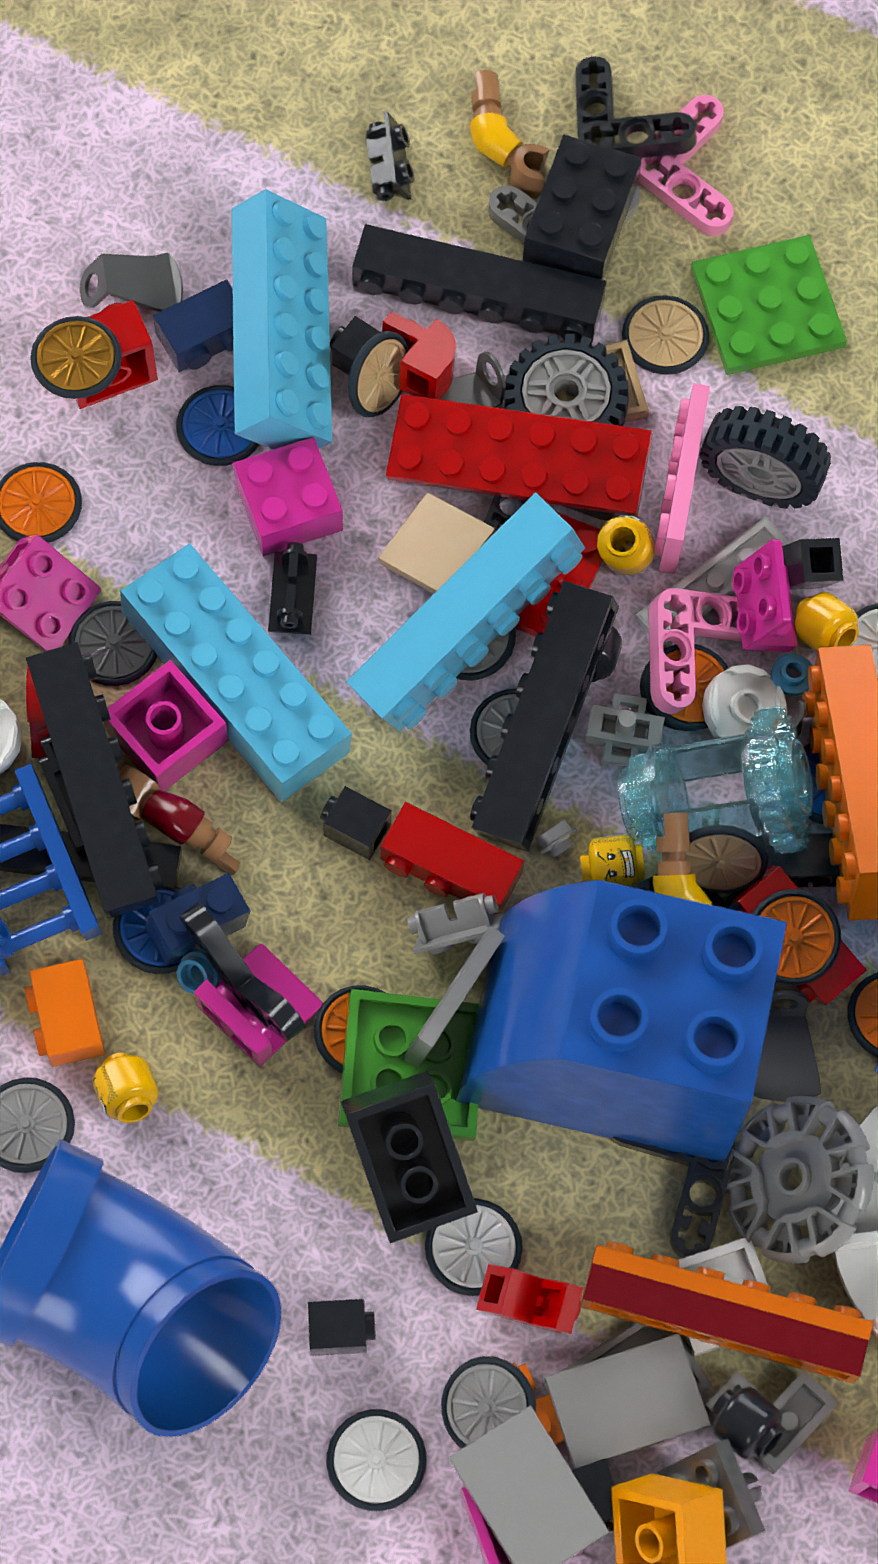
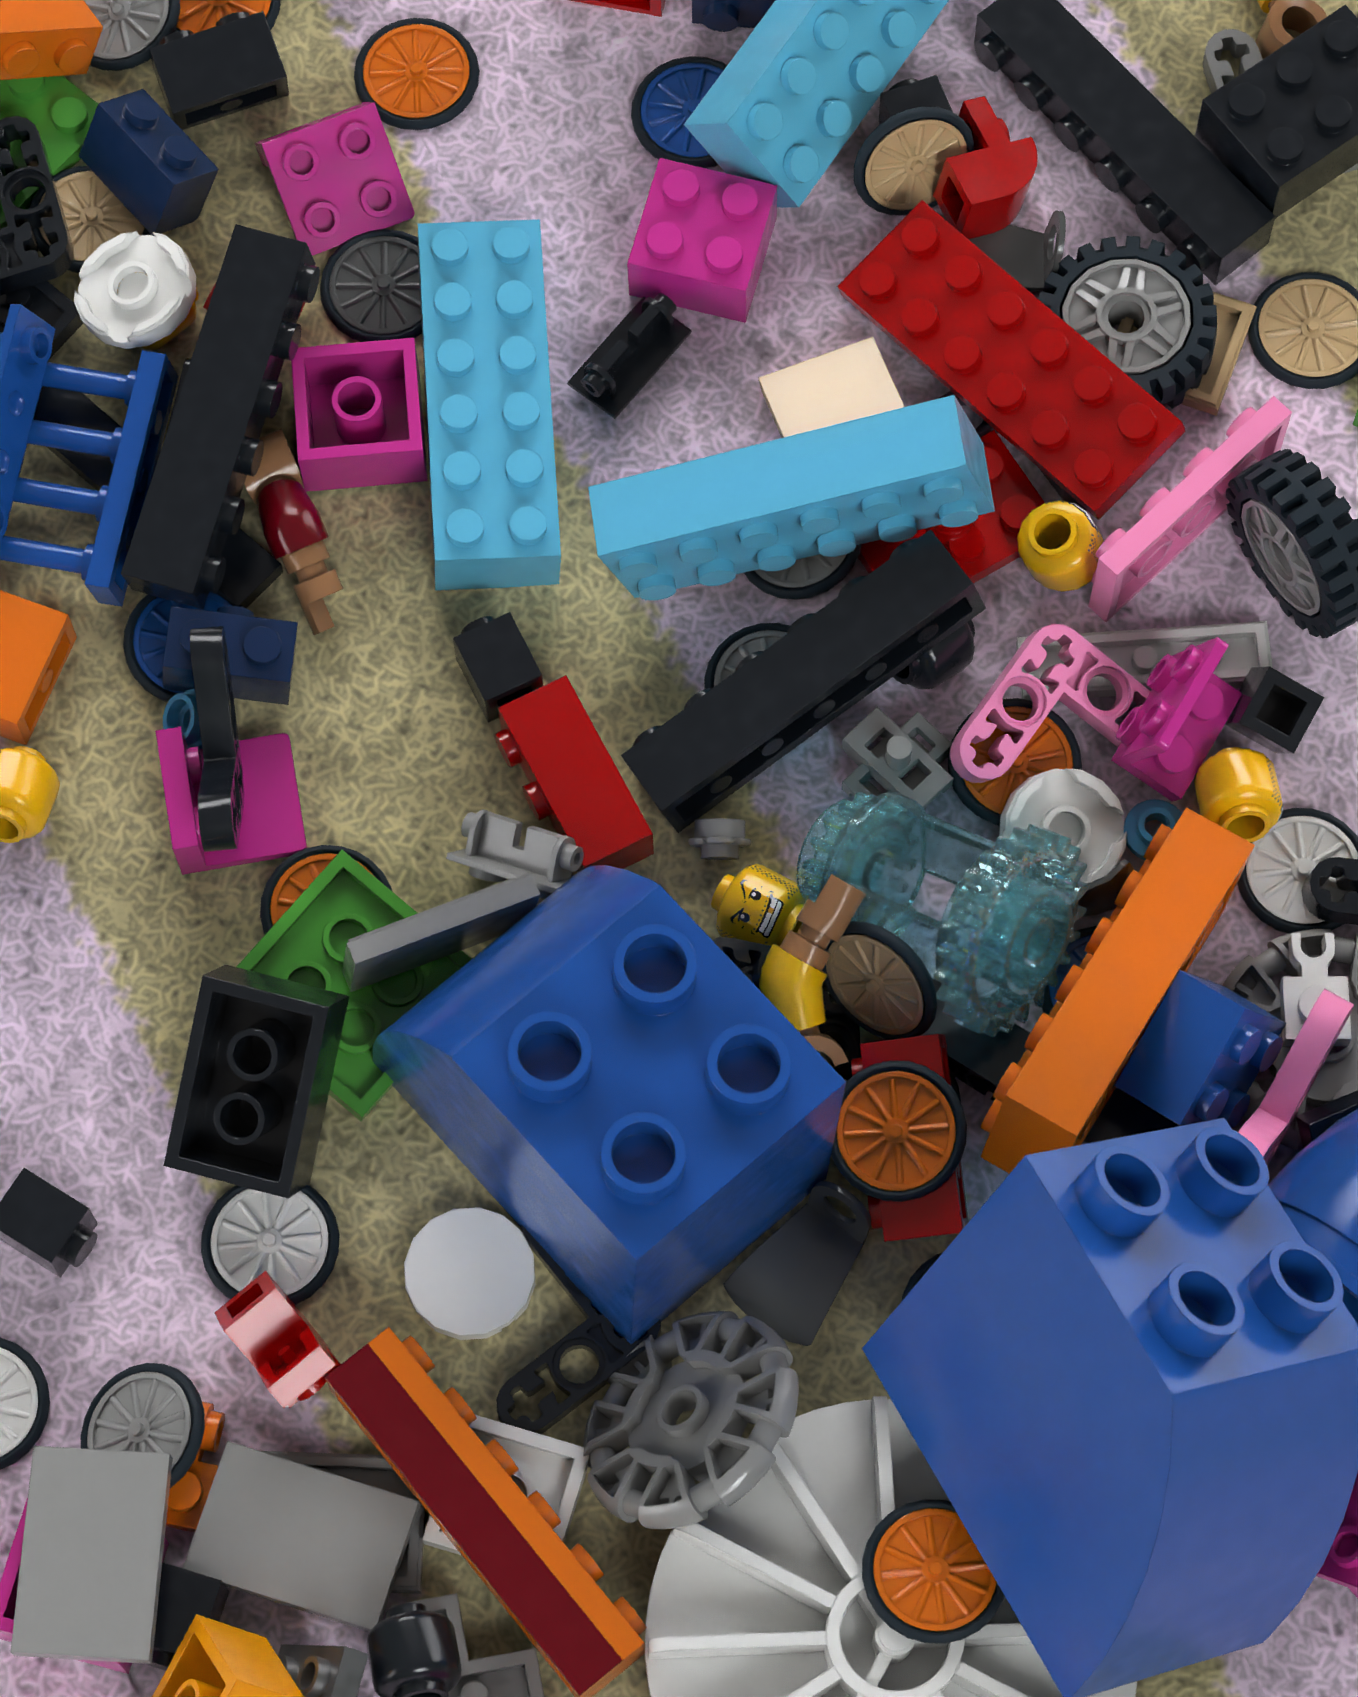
camera: 40 degrees right, 0 degrees up
(602, 1184) = (469, 1273): none -> white tile

